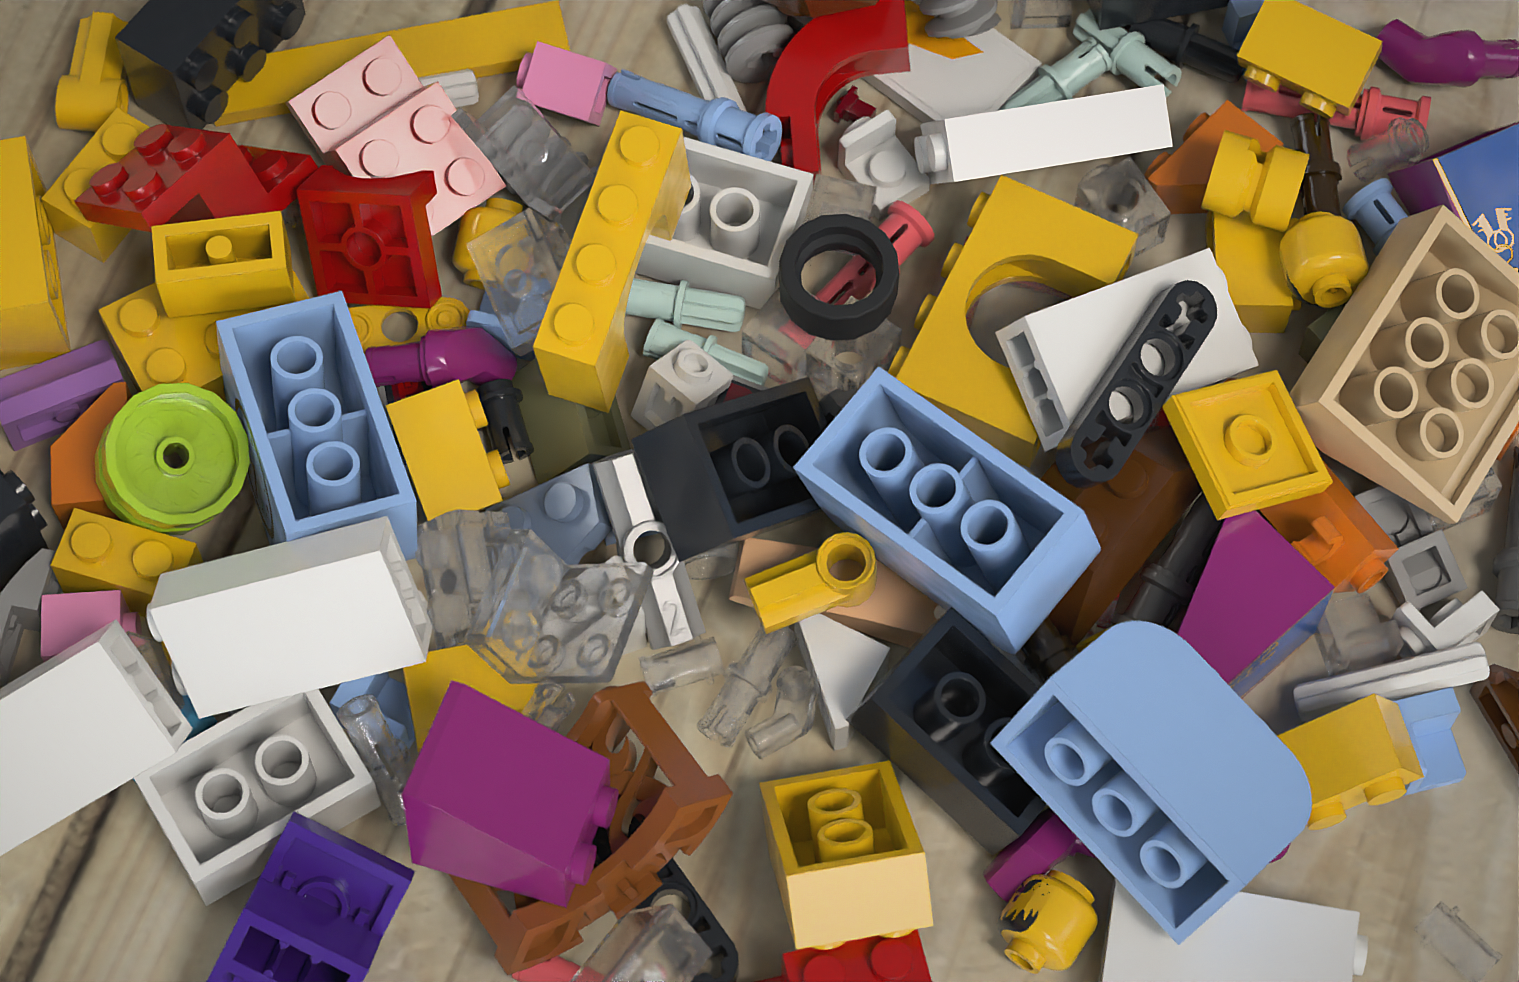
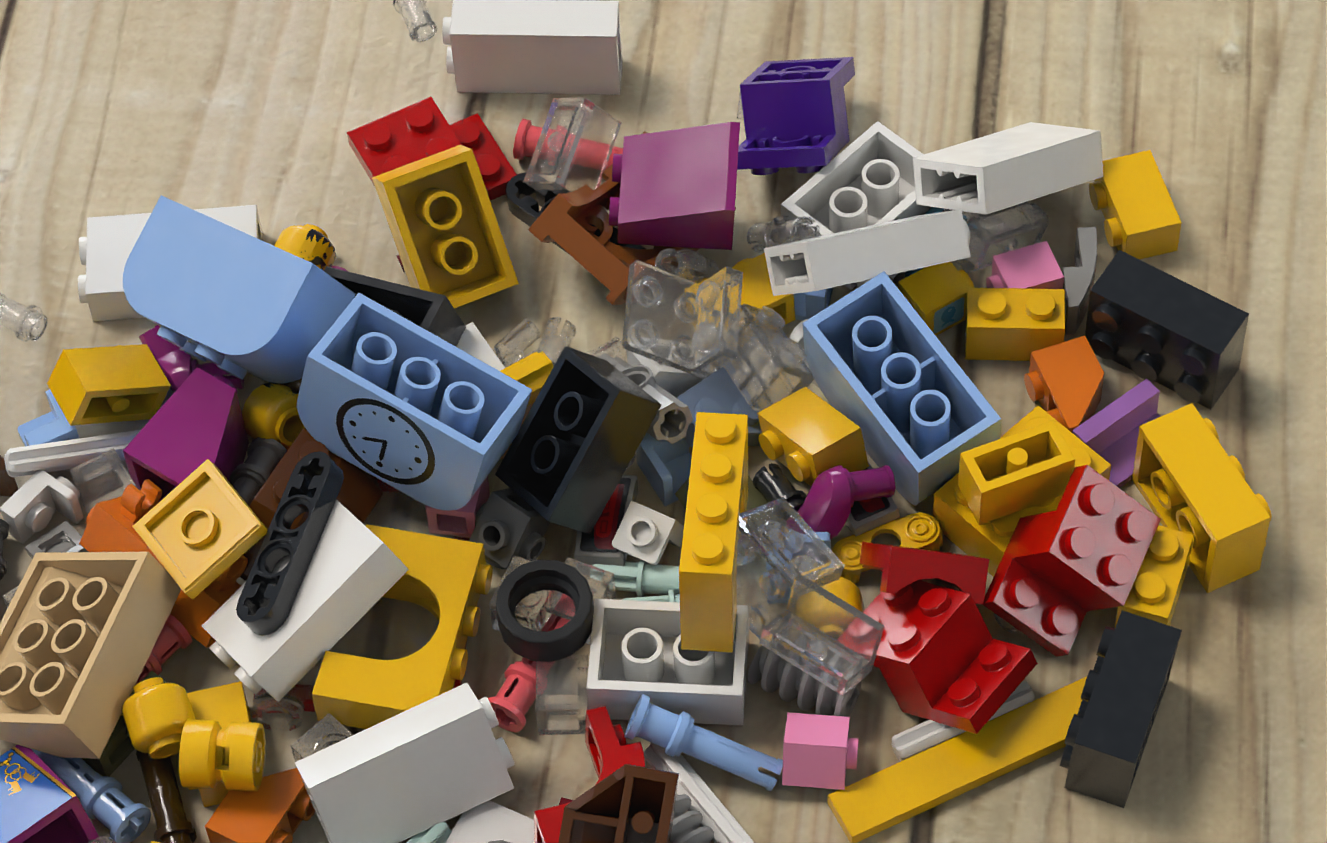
camera: 170 degrees right, 10 degrees down
(95, 77) = (1205, 665): yellow piece -> none
(166, 421) = (1007, 353): lime wheel -> none
(876, 157) = (543, 762): white bracket -> none

